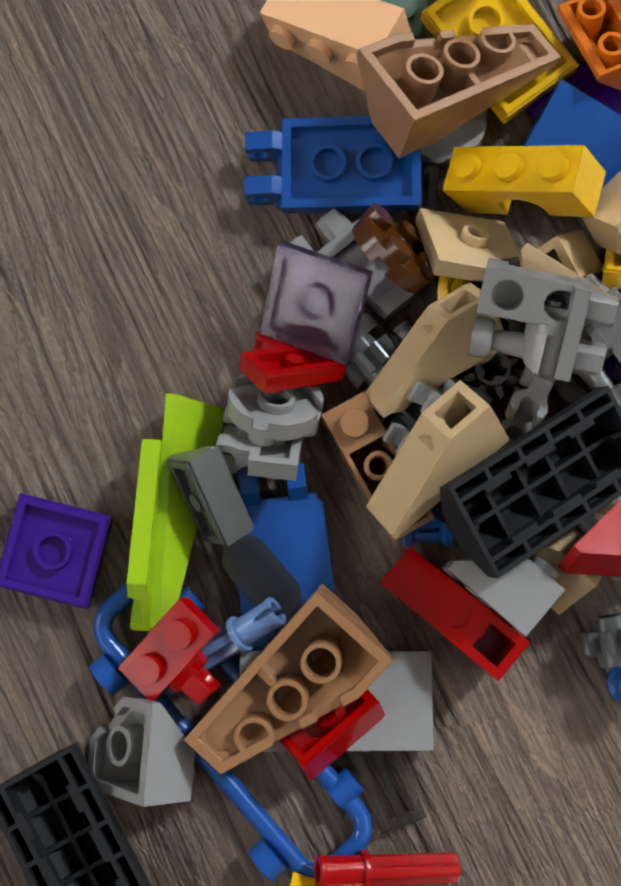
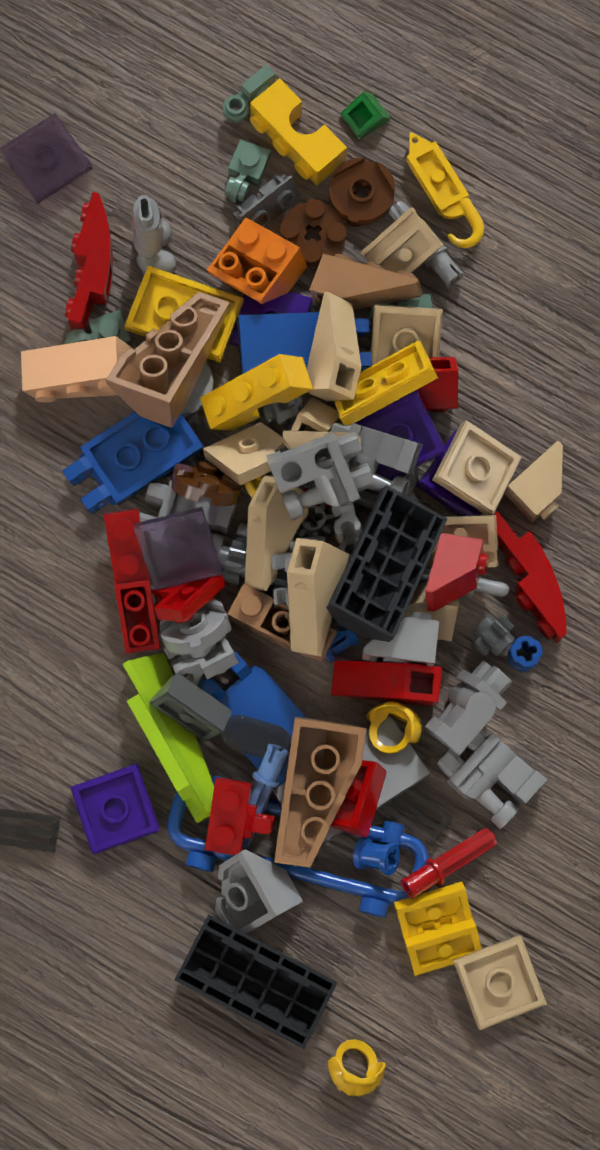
camera: 35 degrees left, 5 degrees down
(239, 308) = (131, 583): none -> red slope
(308, 806) = (376, 856): none -> blue bush
(421, 643) = (398, 710): none -> yellow piece
(506, 784) = (487, 765): none -> light grey hips
(532, 709) = (470, 707): none -> light grey hips
(537, 224) = (283, 413): none -> dark grey gear

